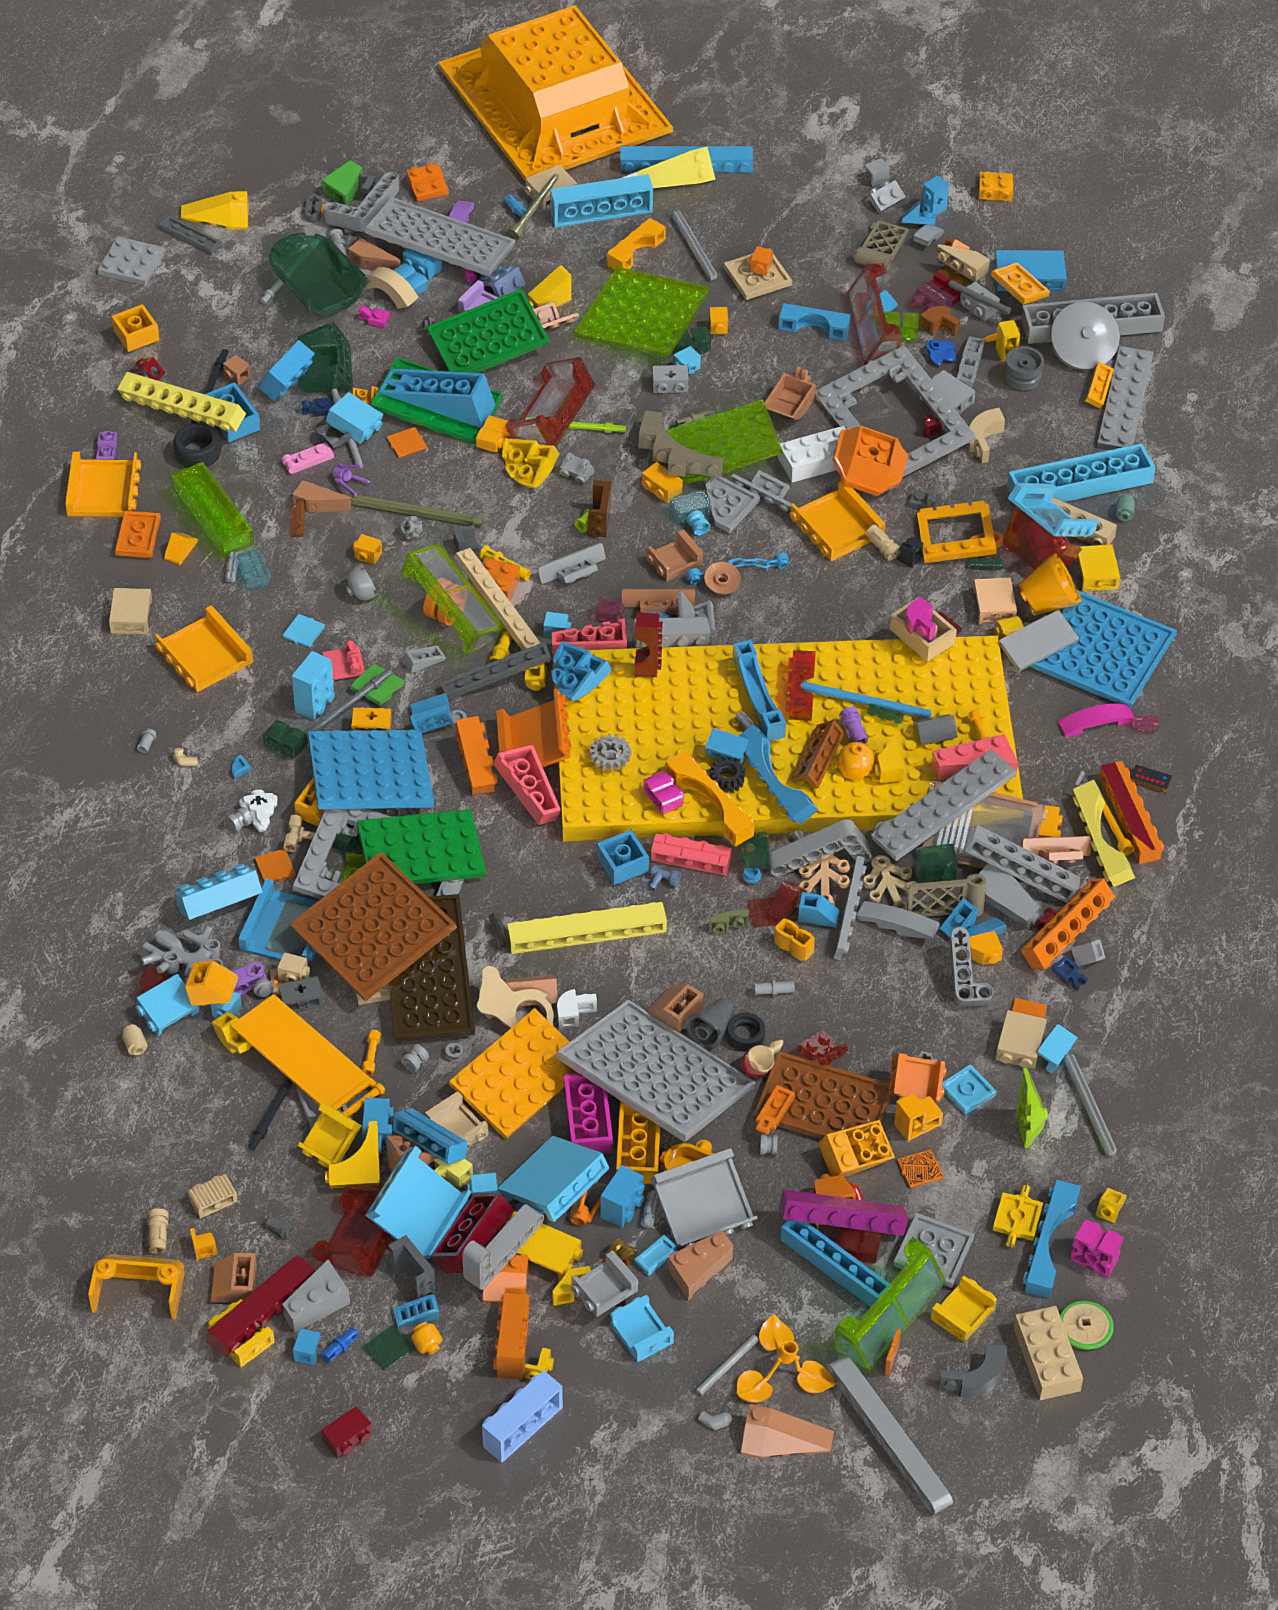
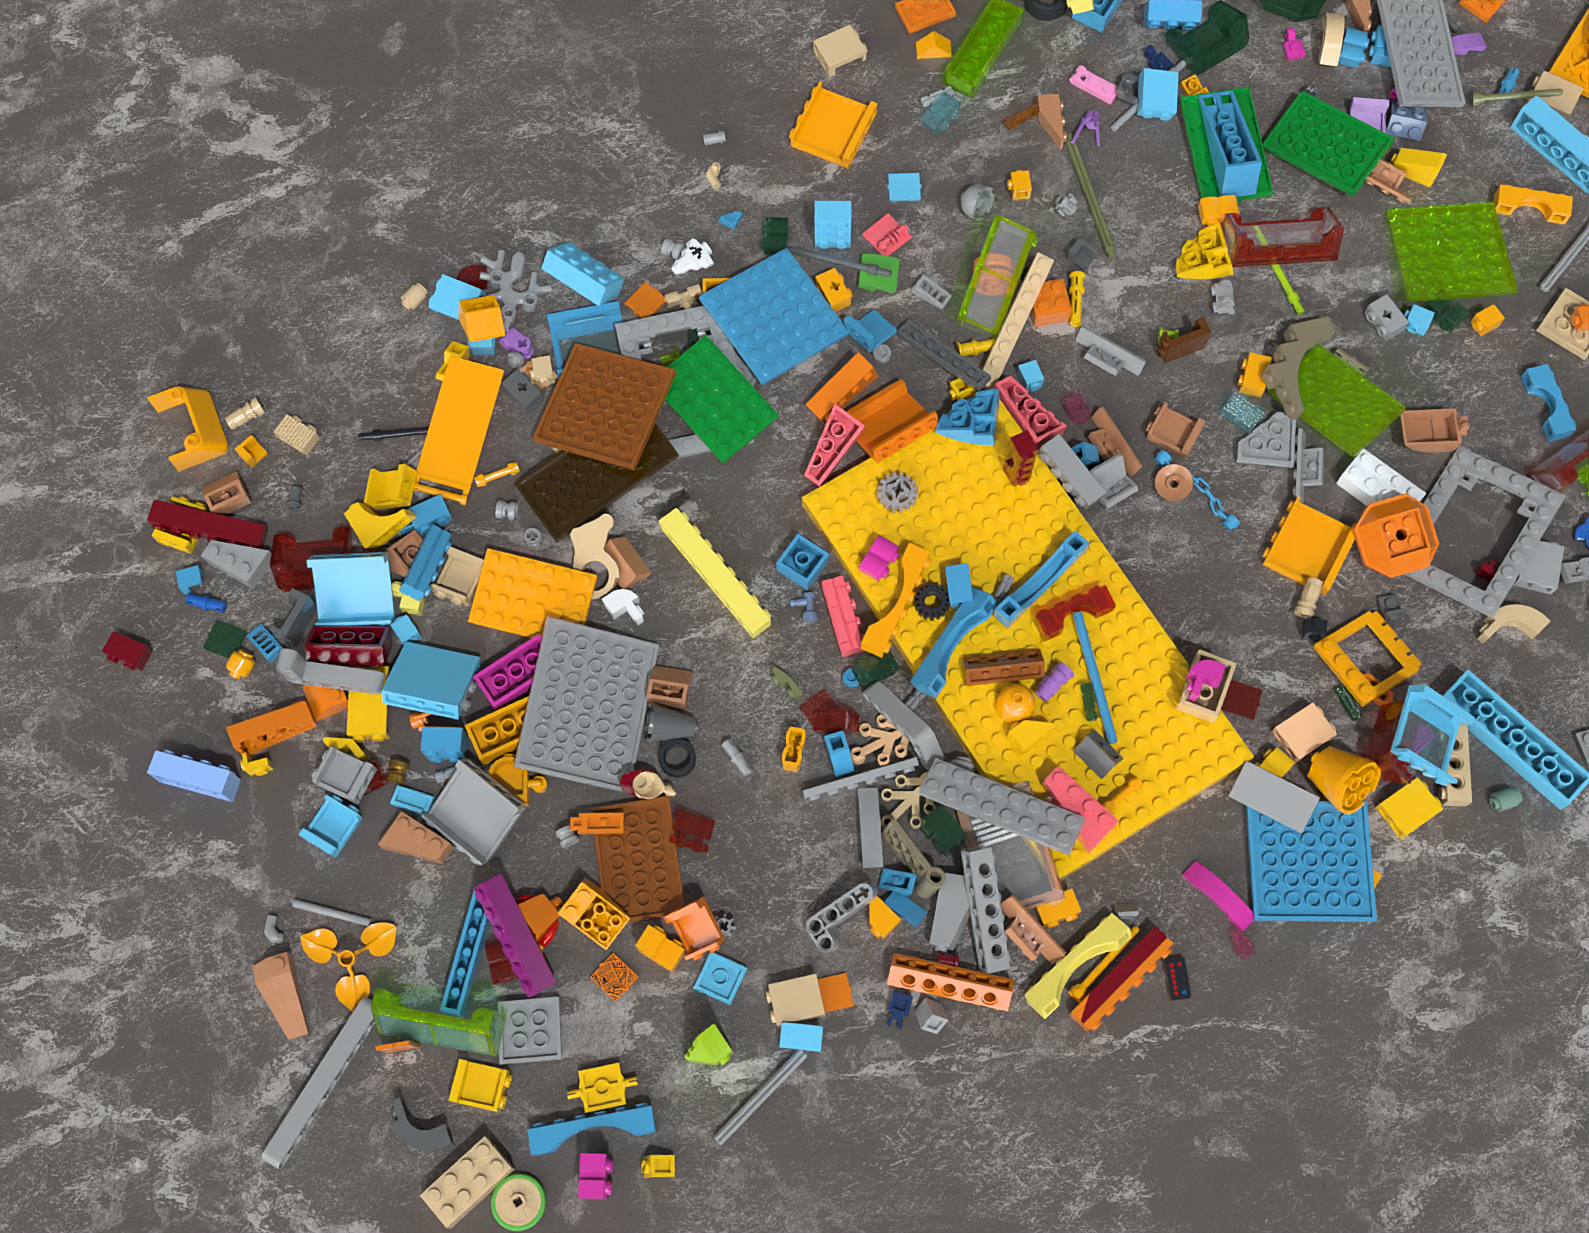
camera: 65 degrees right, 20 degrees up
(406, 442) = (1166, 149): orange piece -> none
(698, 523) = (1227, 429): medium azure wheel -> none

